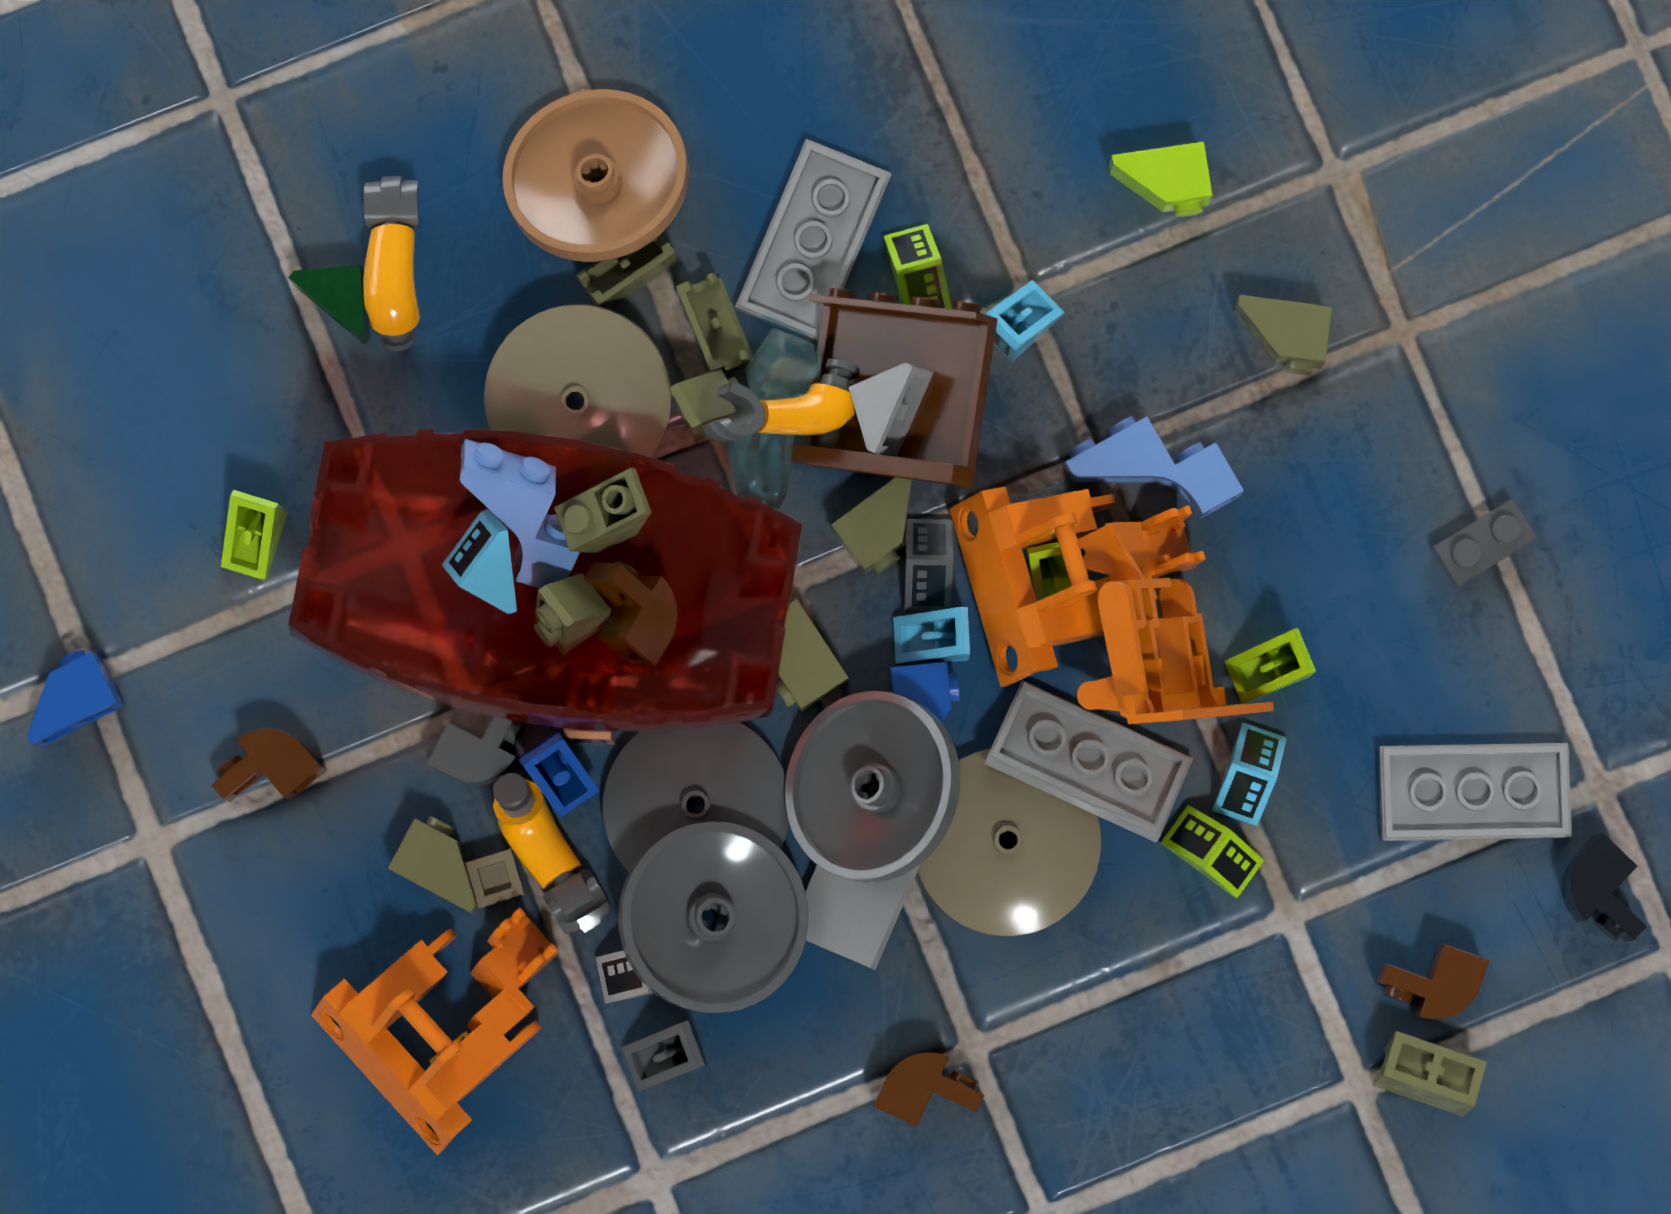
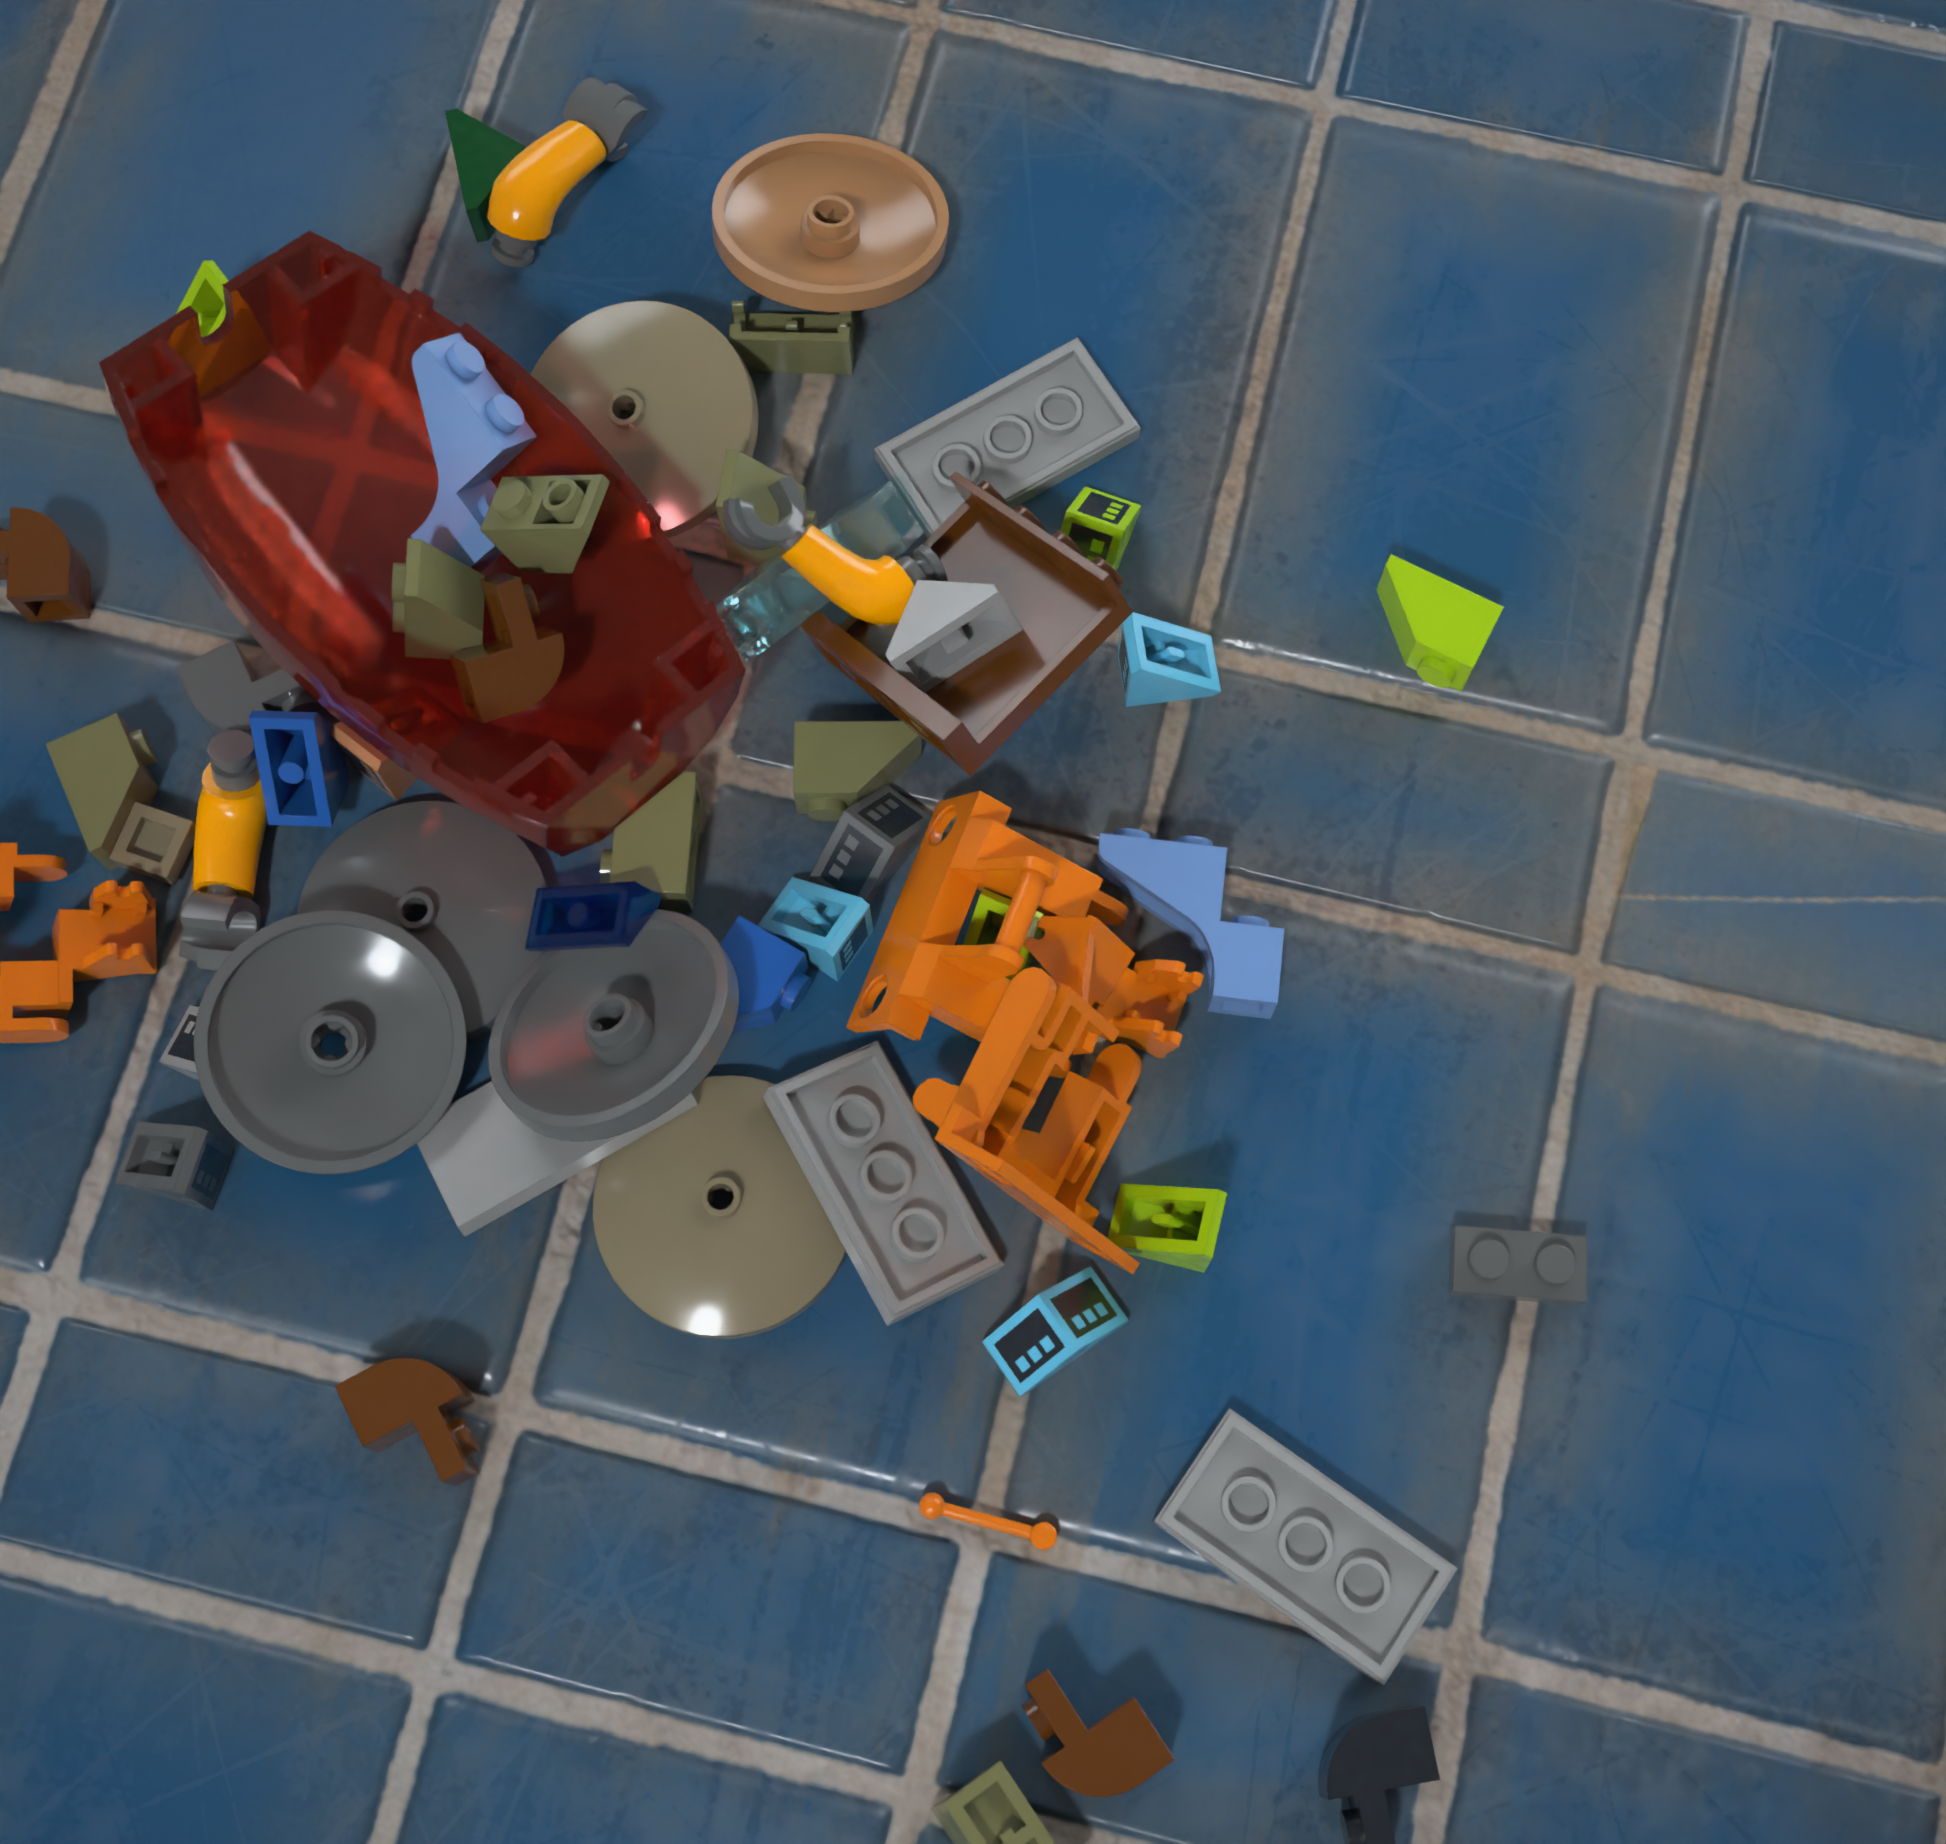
camera: 35 degrees right, 10 degrees down
(483, 562) = (383, 492): medium azure slope -> none
(715, 324) = (838, 447): olive hinge -> none
(802, 733) = (589, 916): none -> clear blue slope
(1213, 850) = (948, 1388): slope -> none
(1287, 331) = (1455, 871): olive slope -> none
(1324, 894) = (1040, 1535): none -> orange hinge

